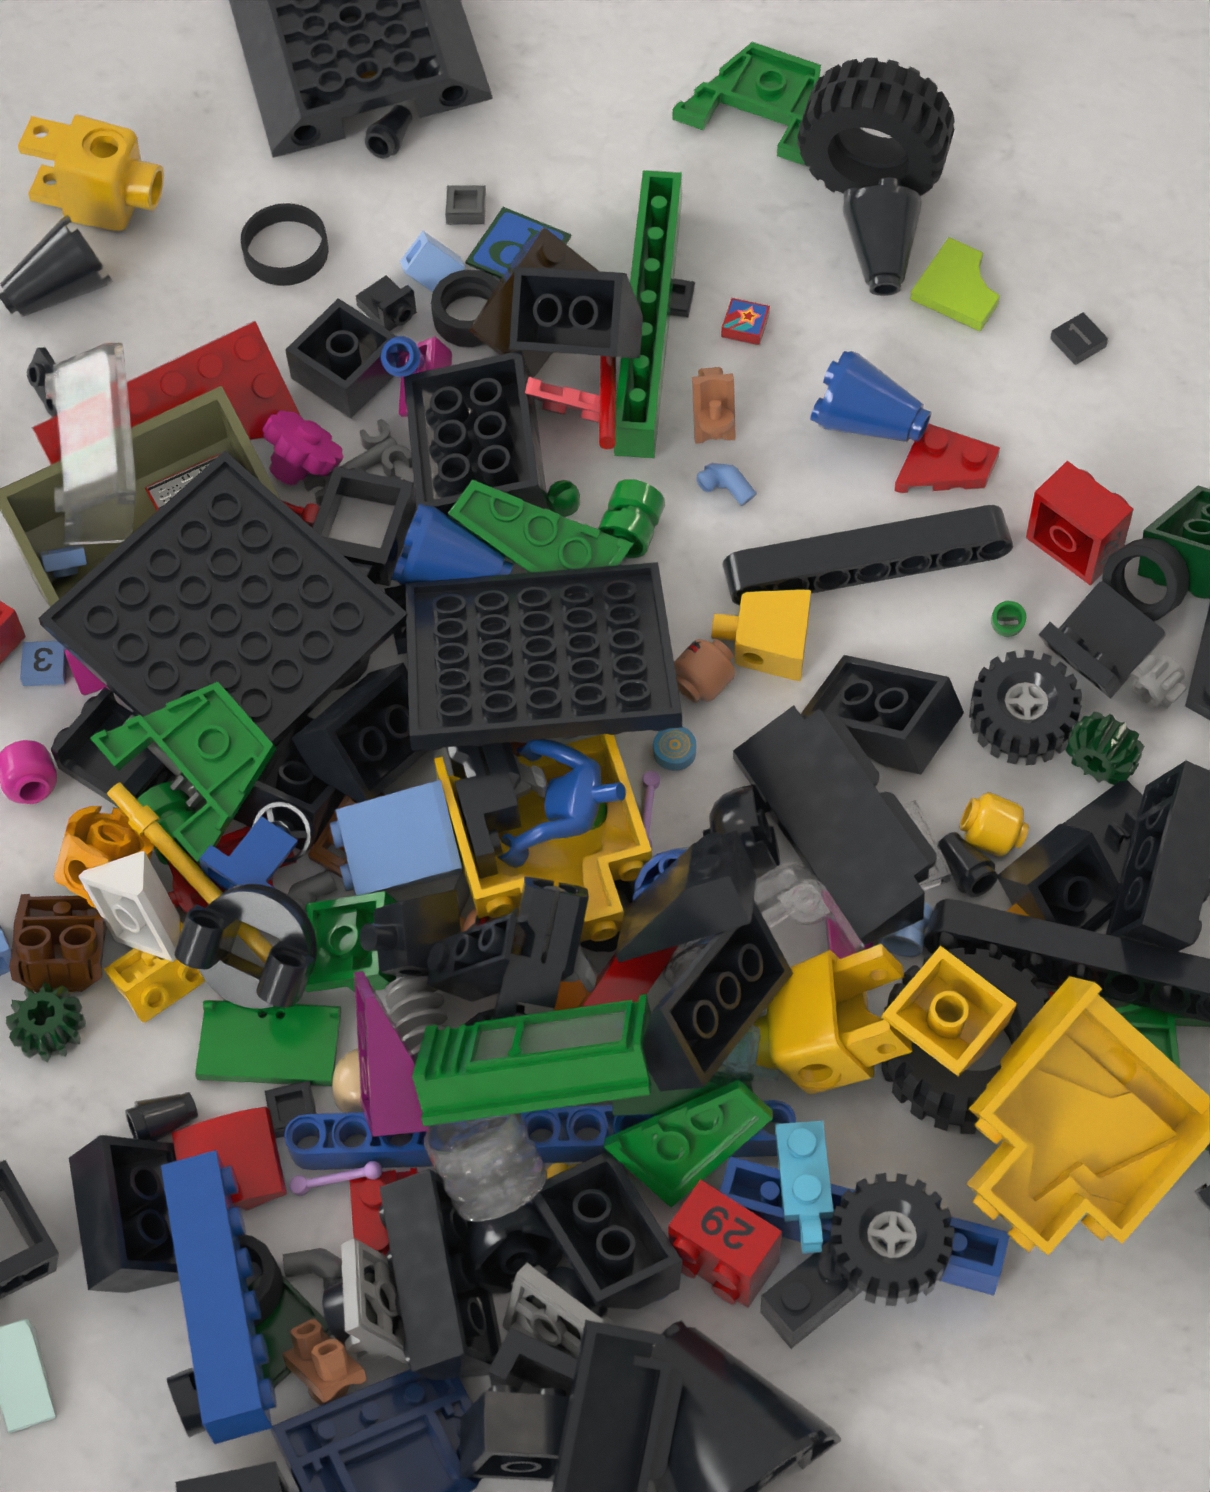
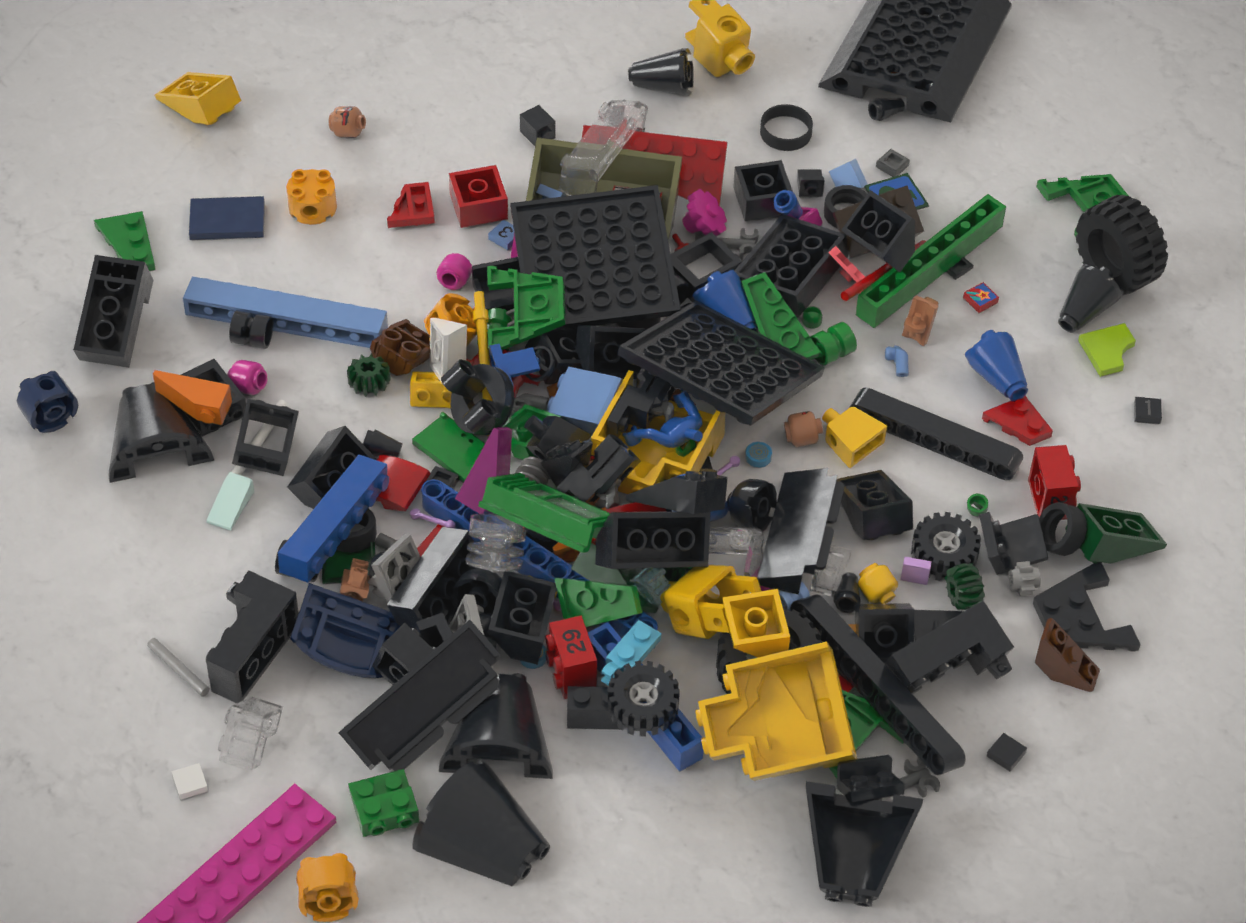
camera: 35 degrees right, 10 degrees down
(1021, 769) = (915, 570): none -> lavender tile

